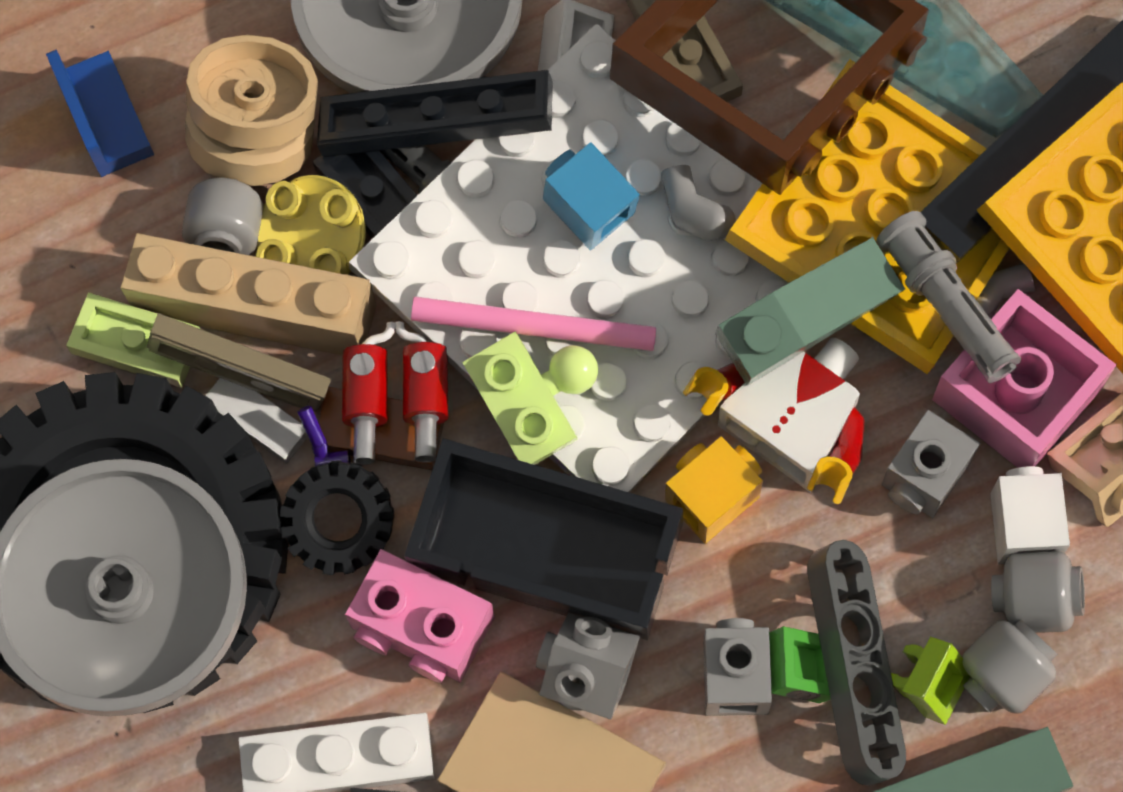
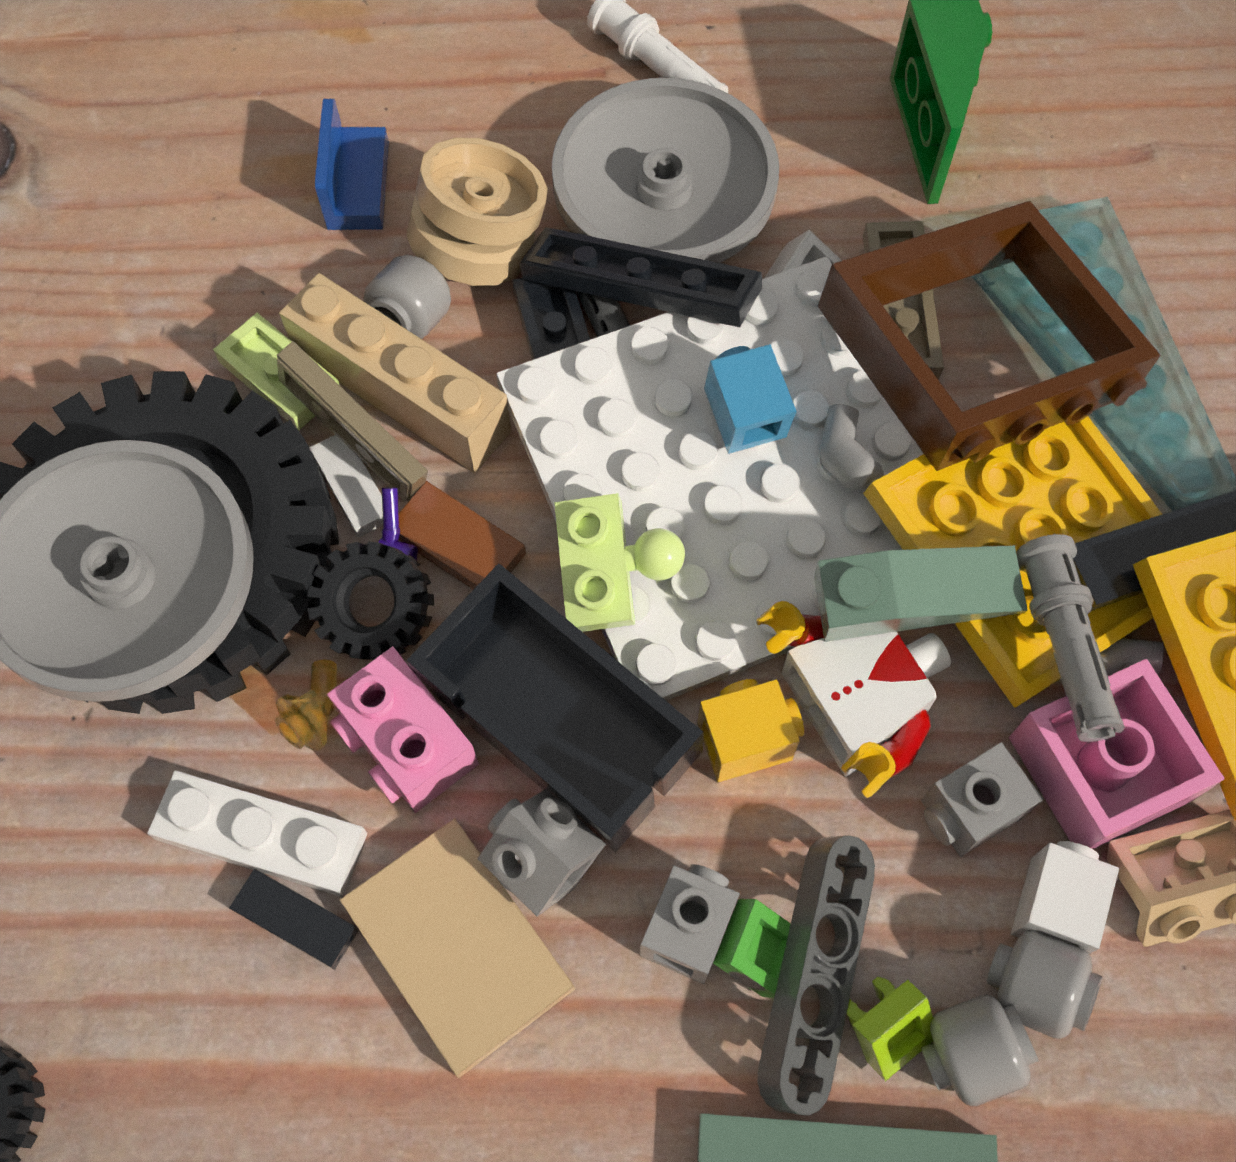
camera: 20 degrees right, 5 degrees down
(311, 224) = (485, 331): light yellow dish -> none
(328, 645) = (305, 717): none -> clear yellow plate
(367, 387) = (458, 494): red piece -> none
(533, 323) = (642, 497): bright pink bar -> none

